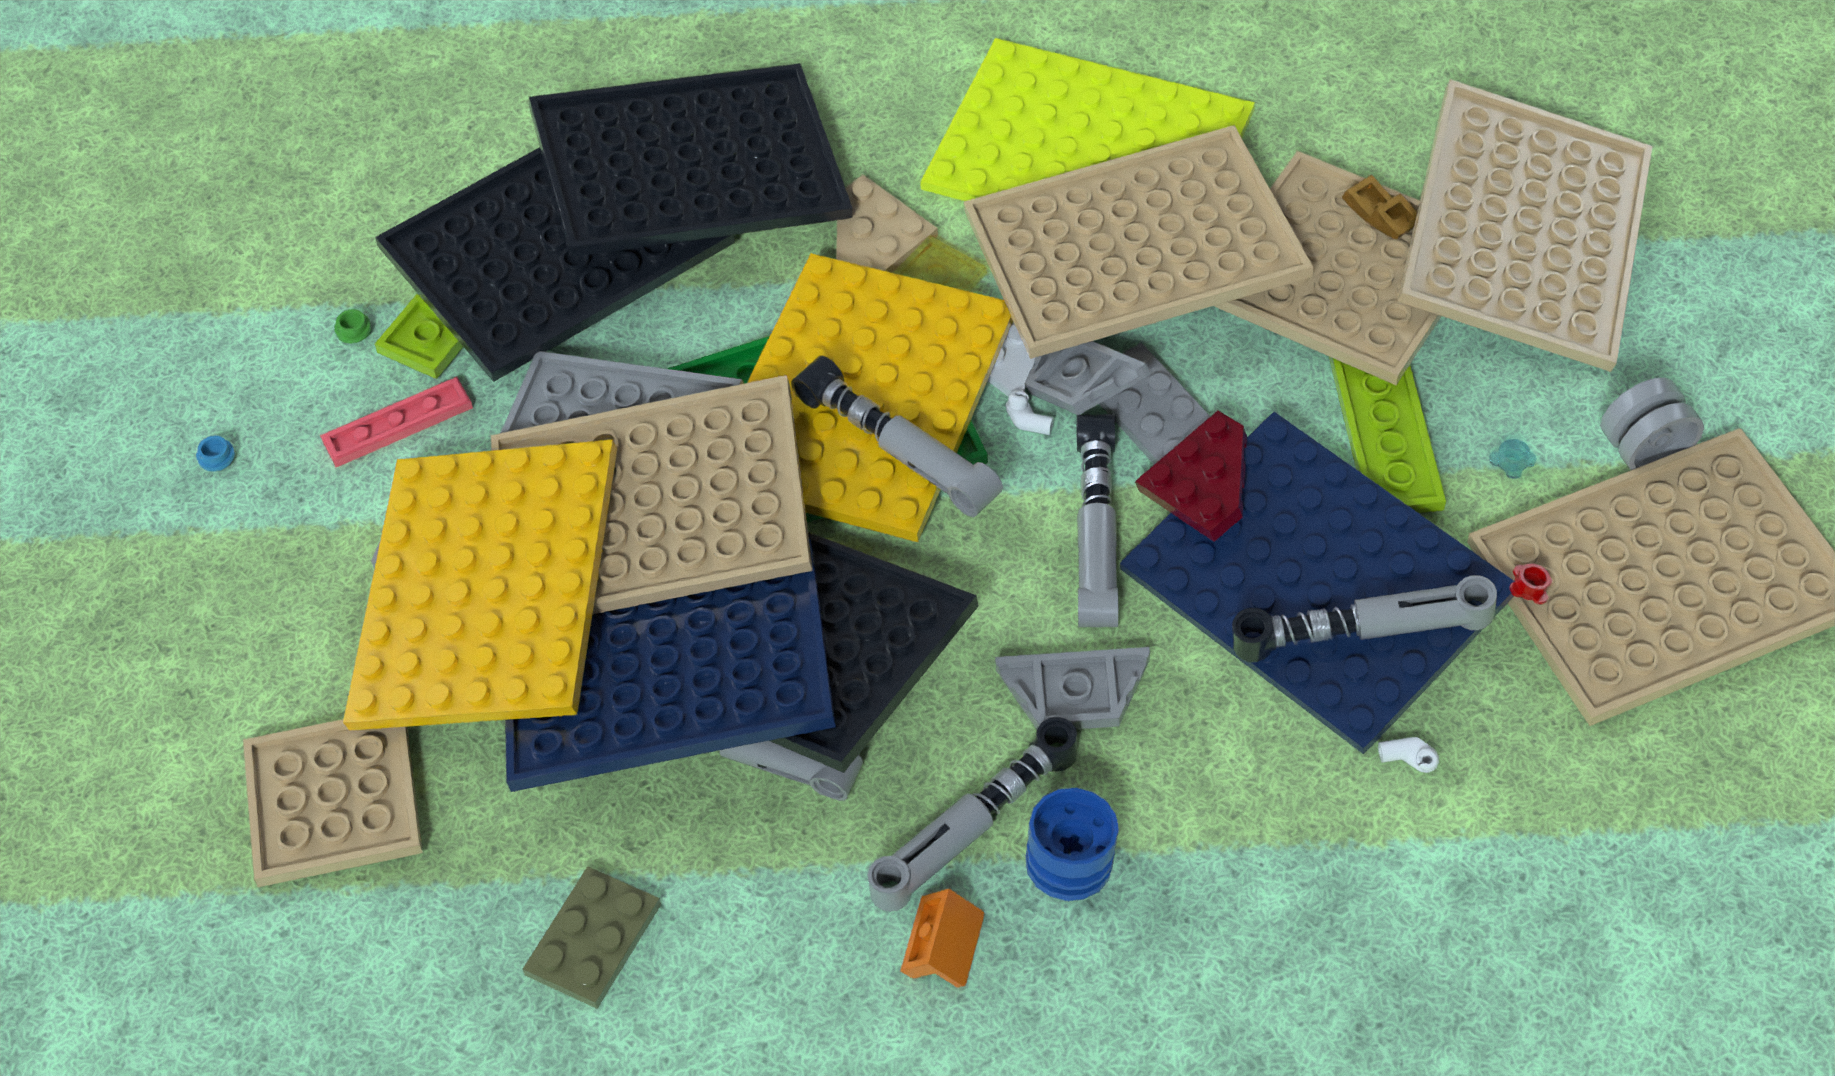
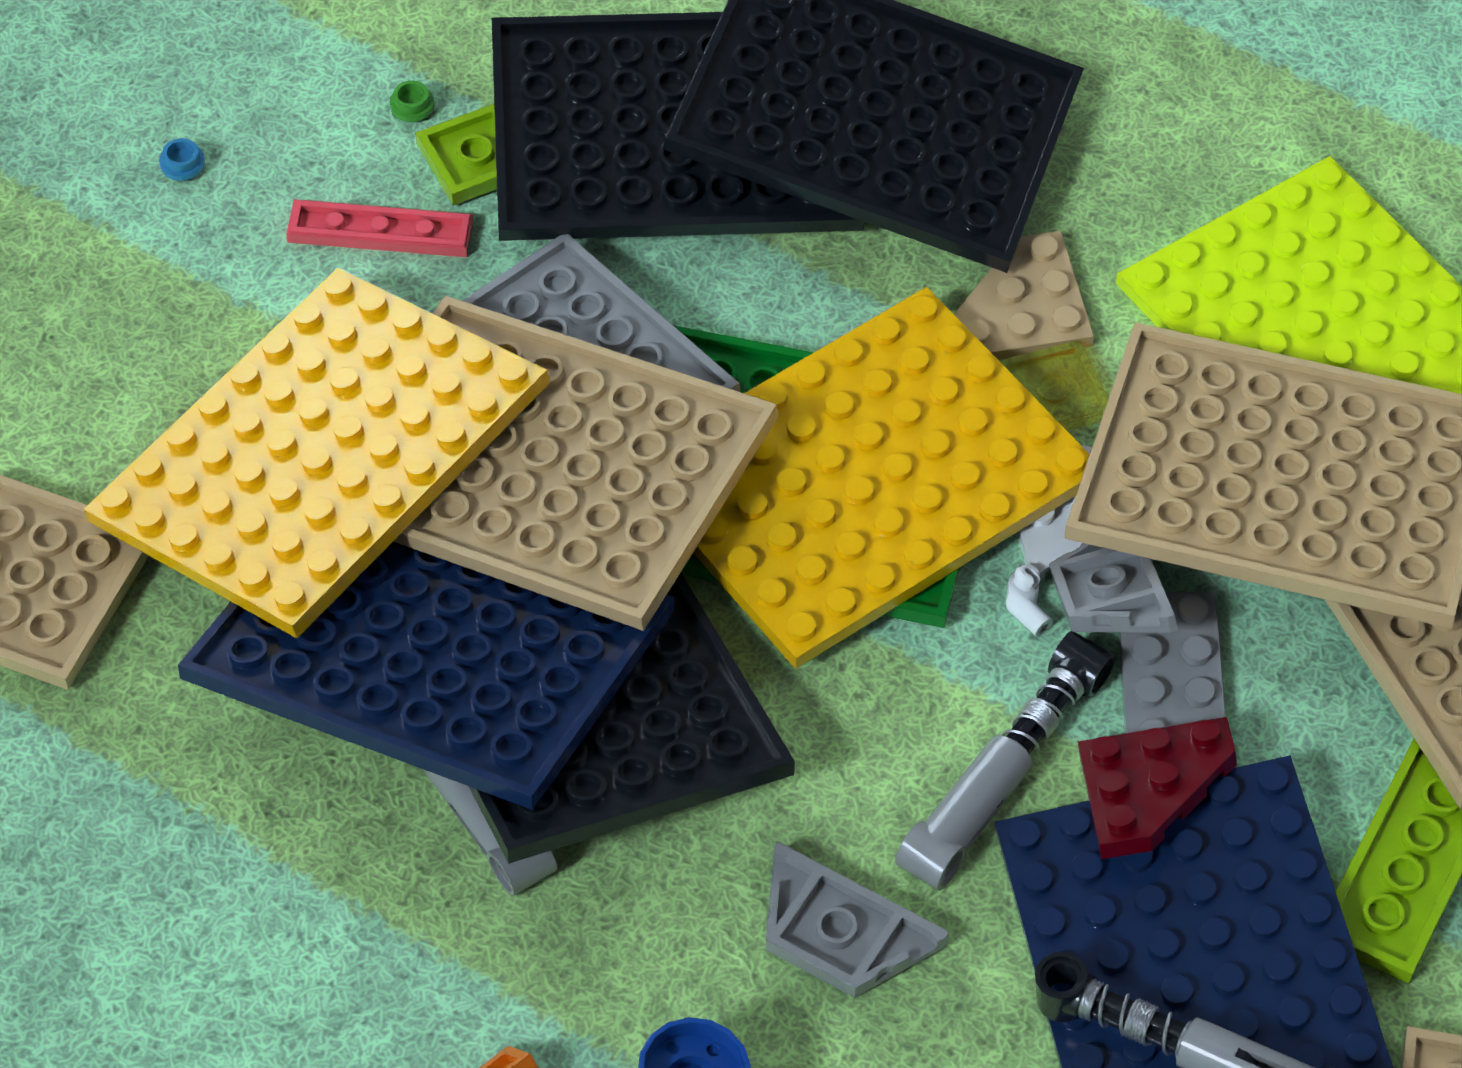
camera: 30 degrees right, 0 degrees up
(592, 937) = (159, 878): olive plate -> none
(967, 484) = (878, 633): light grey piece -> none
(969, 817) = (618, 994): piece -> none

